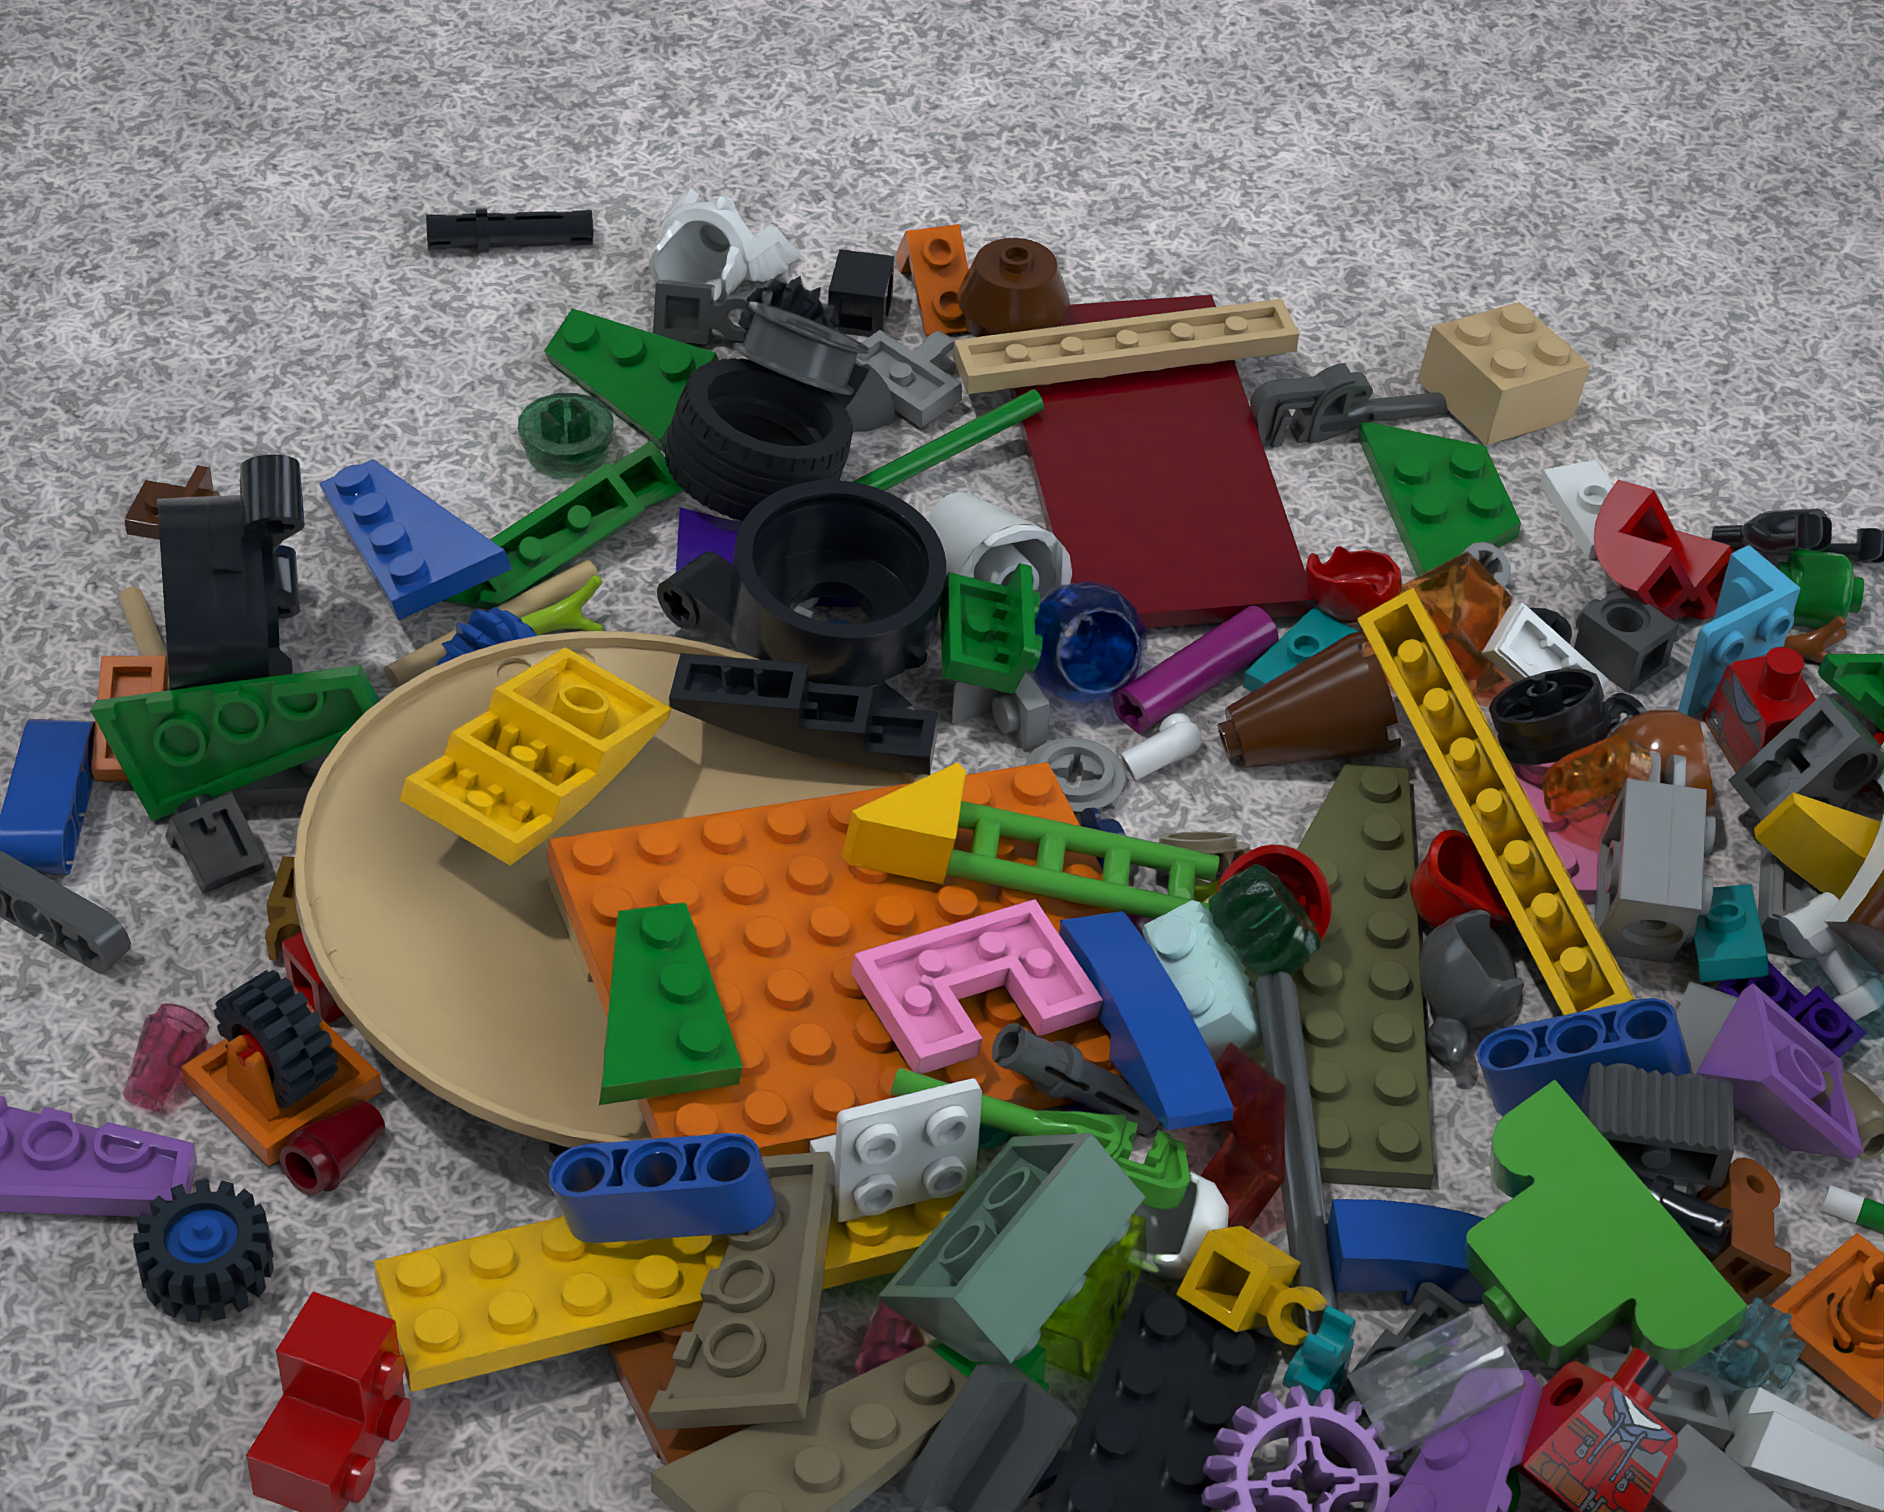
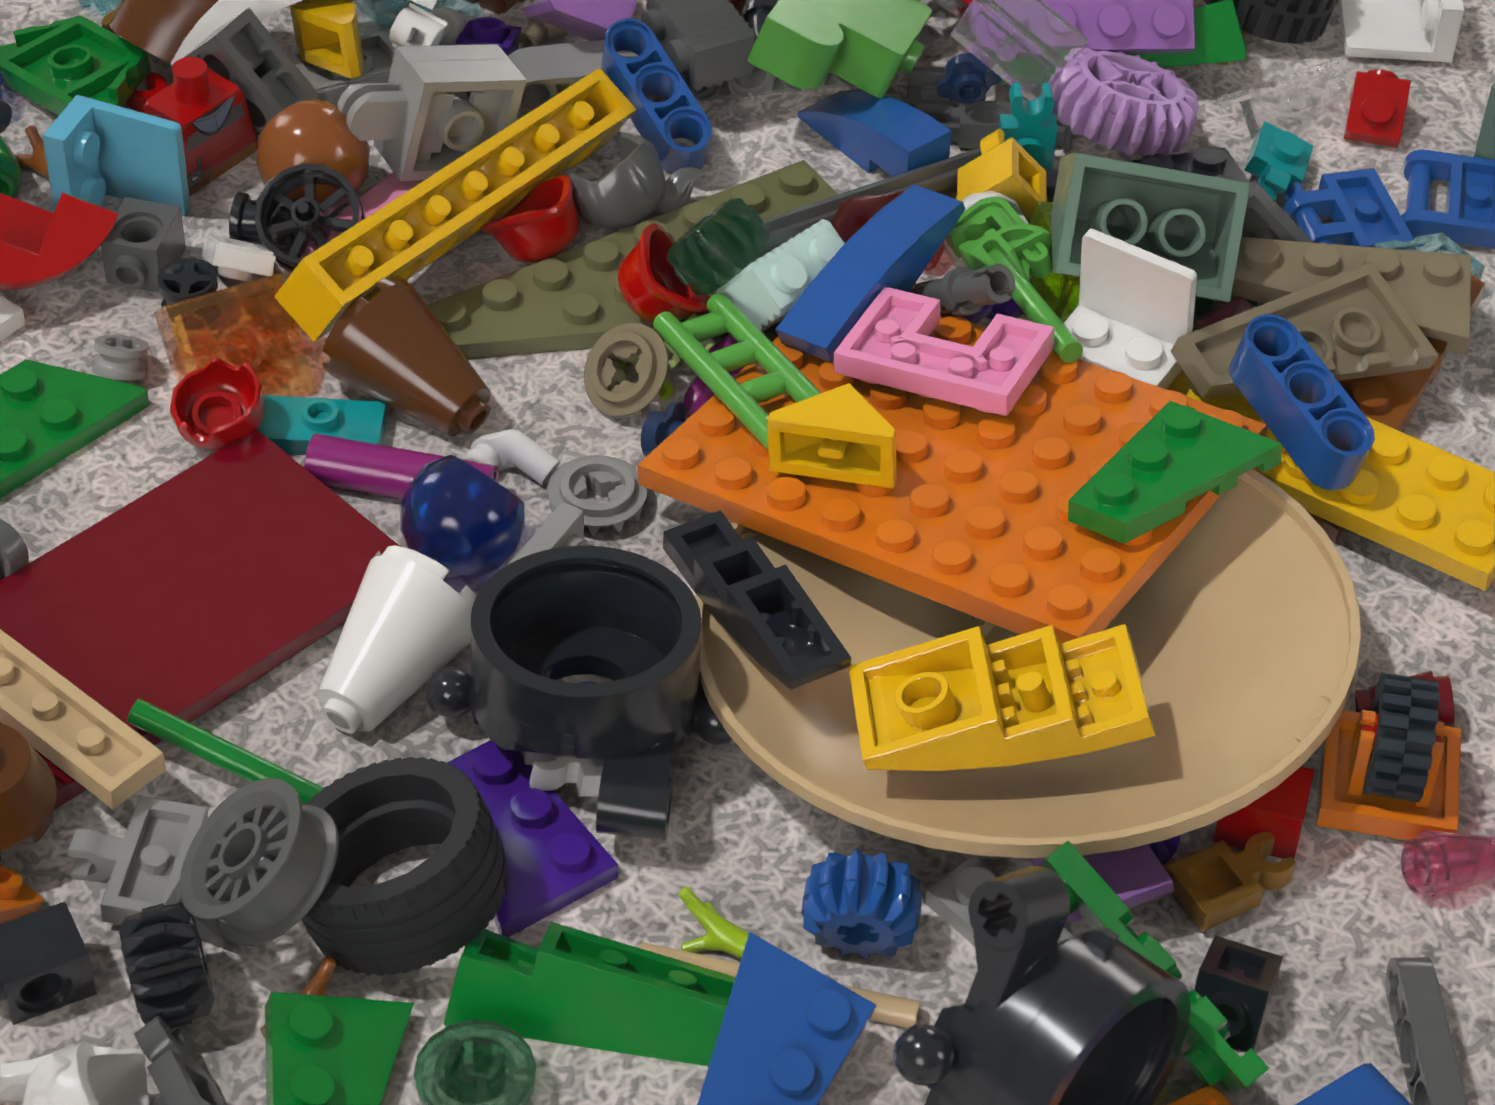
camera: 125 degrees left, 0 degrees up
(989, 630) = (528, 522): green bracket -> none
(1593, 777) = (382, 155): clear orange plate -> none

